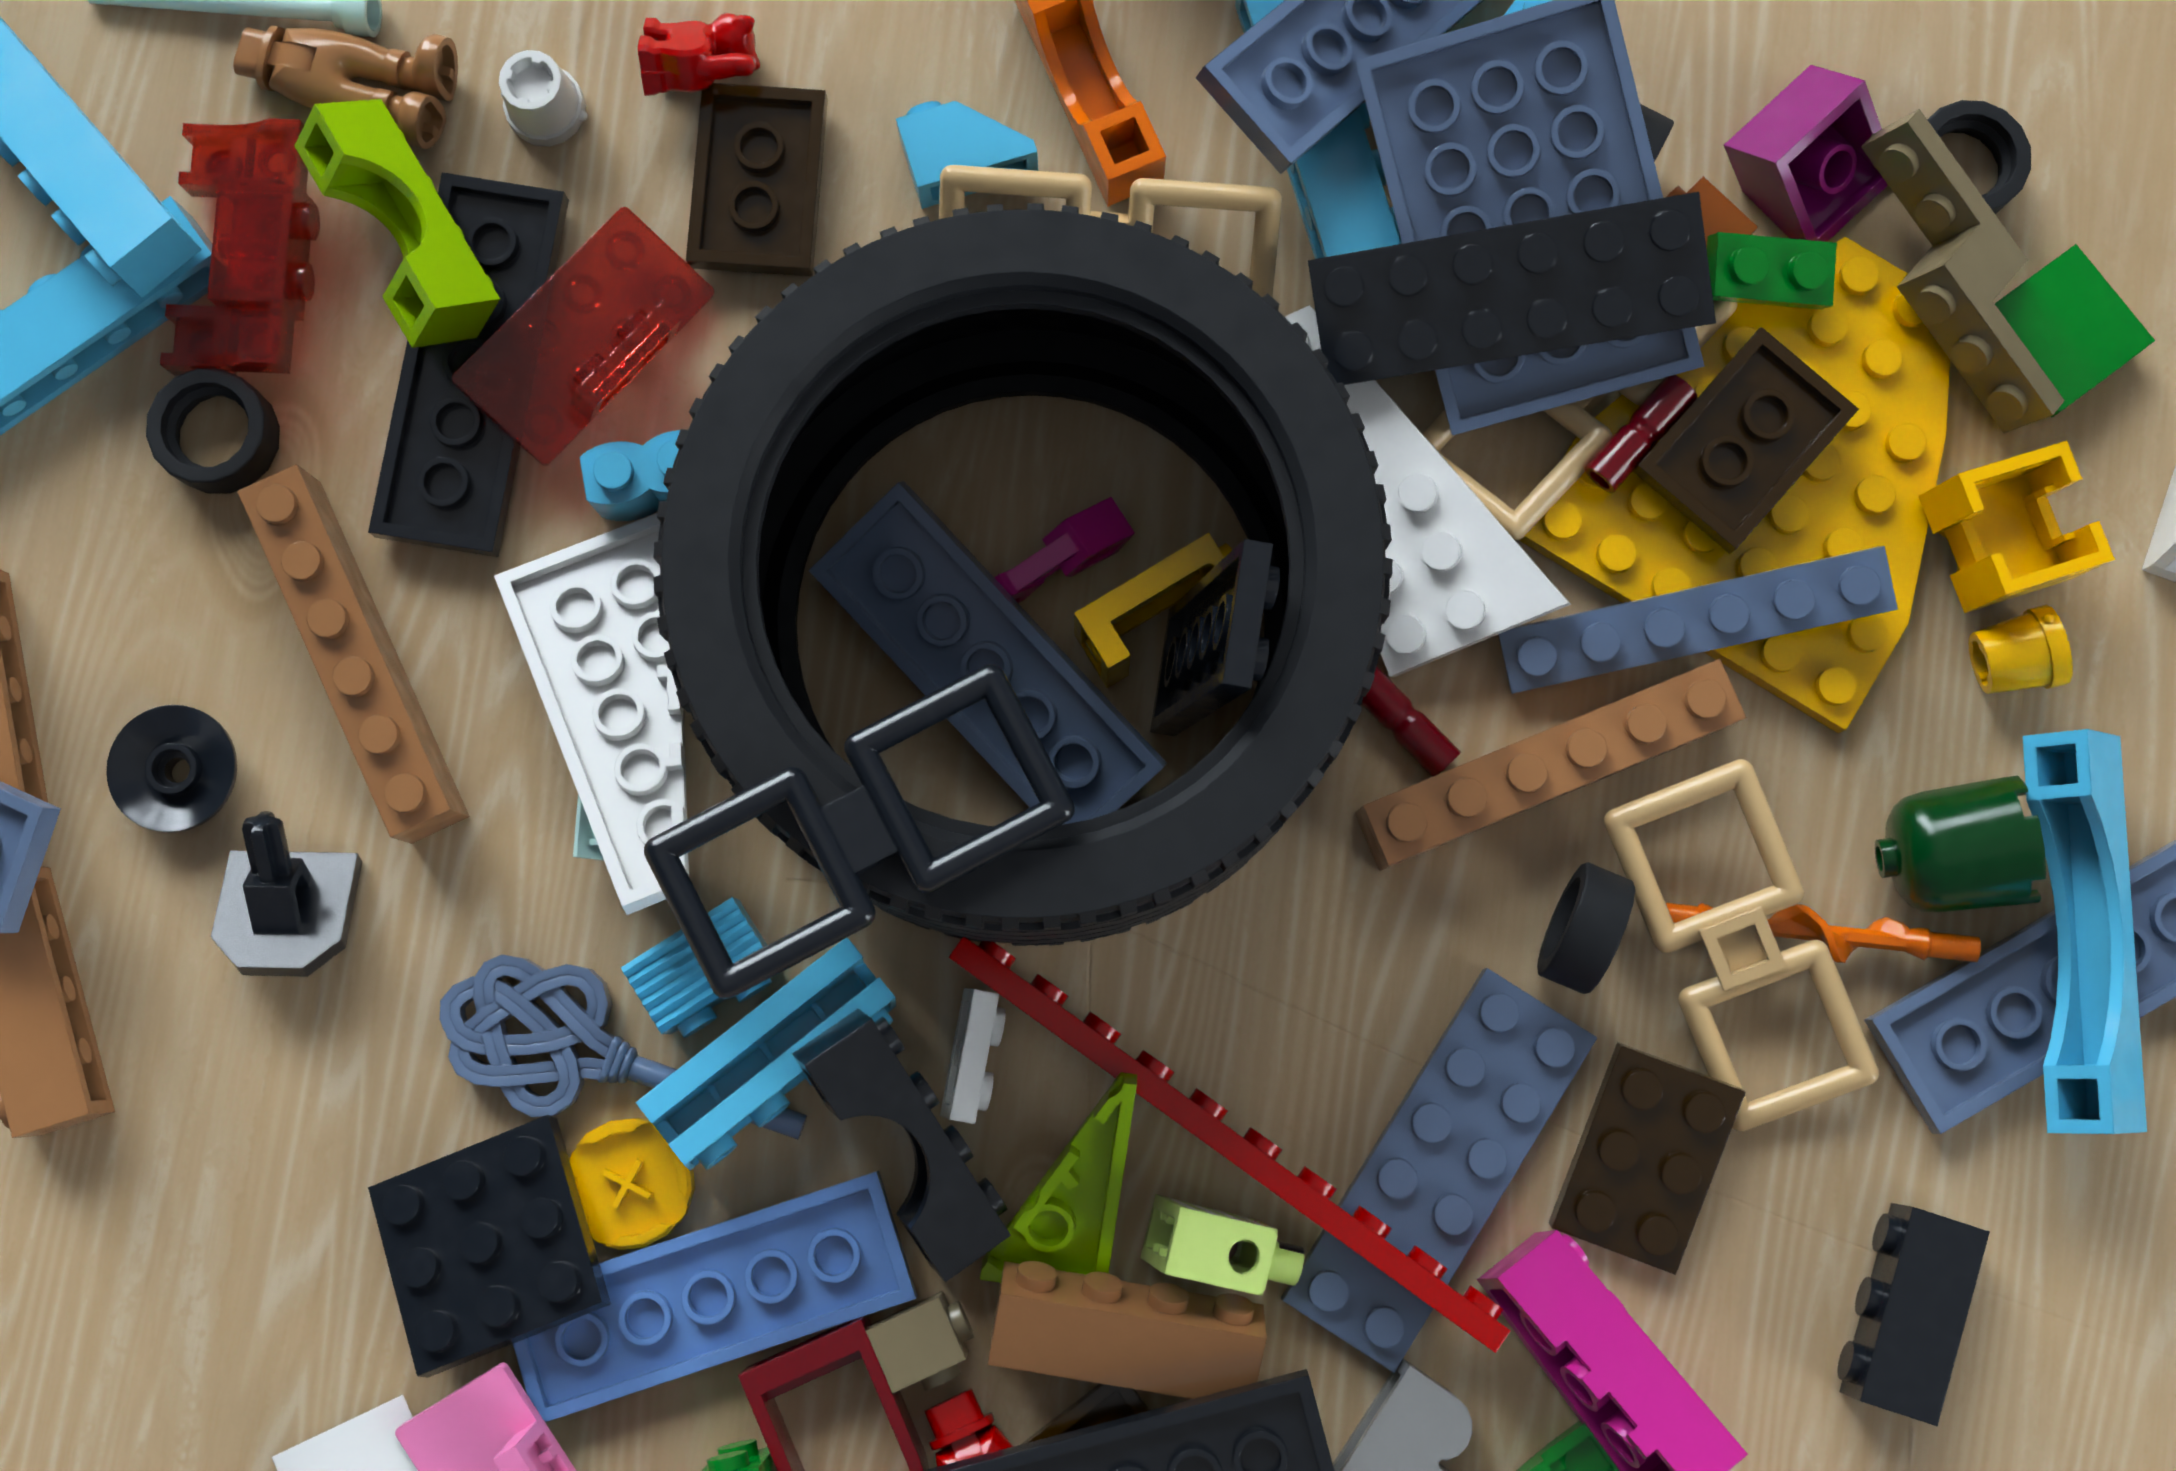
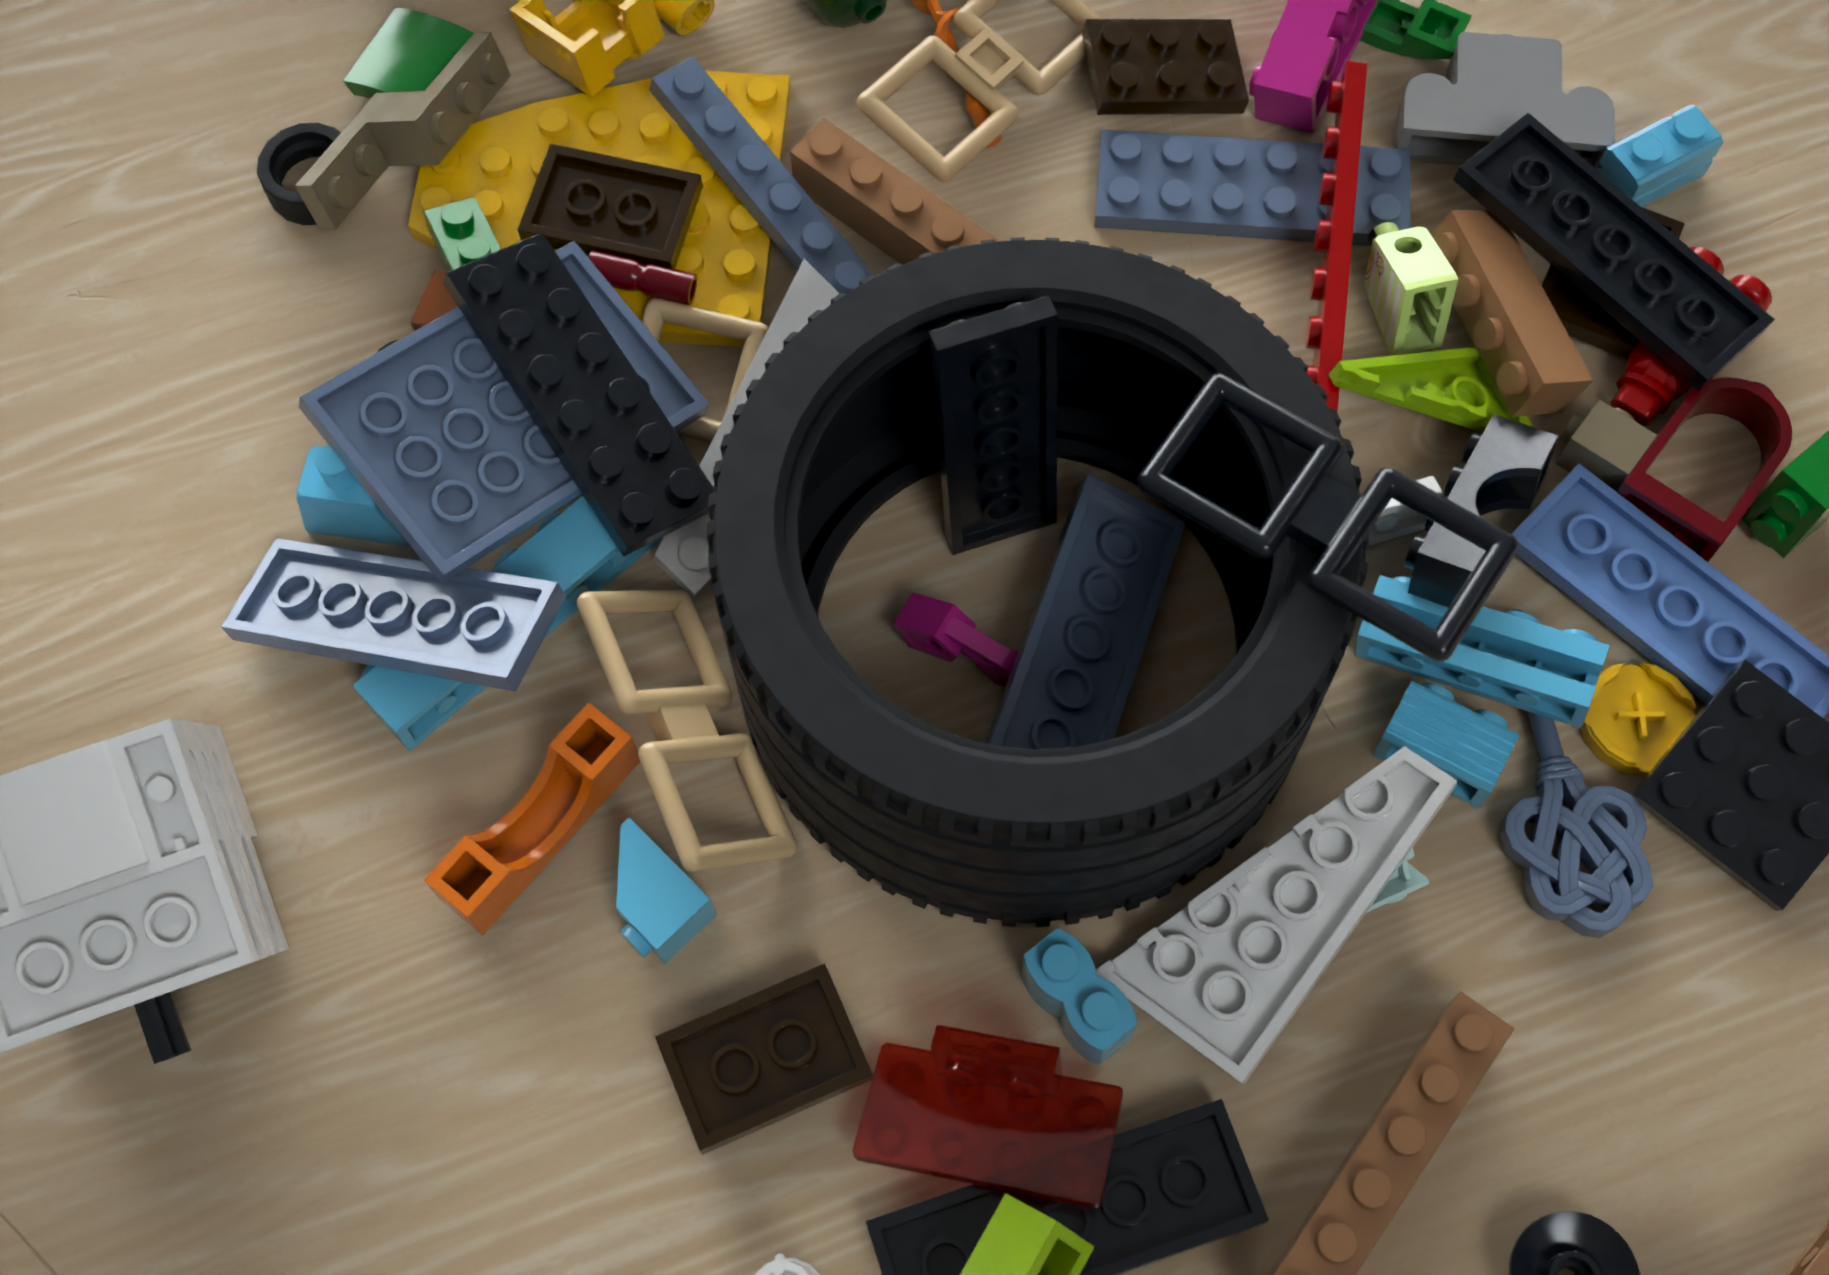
camera: 115 degrees left, 15 degrees down
(283, 907) = (1623, 1105): piece -> none
(695, 53) = (677, 1176): red animal -> none
(1137, 601) = (963, 549): yellow panel -> none
(1586, 928) = (1031, 133): black tyre -> none
(1806, 156) = (351, 272): magenta slope -> none

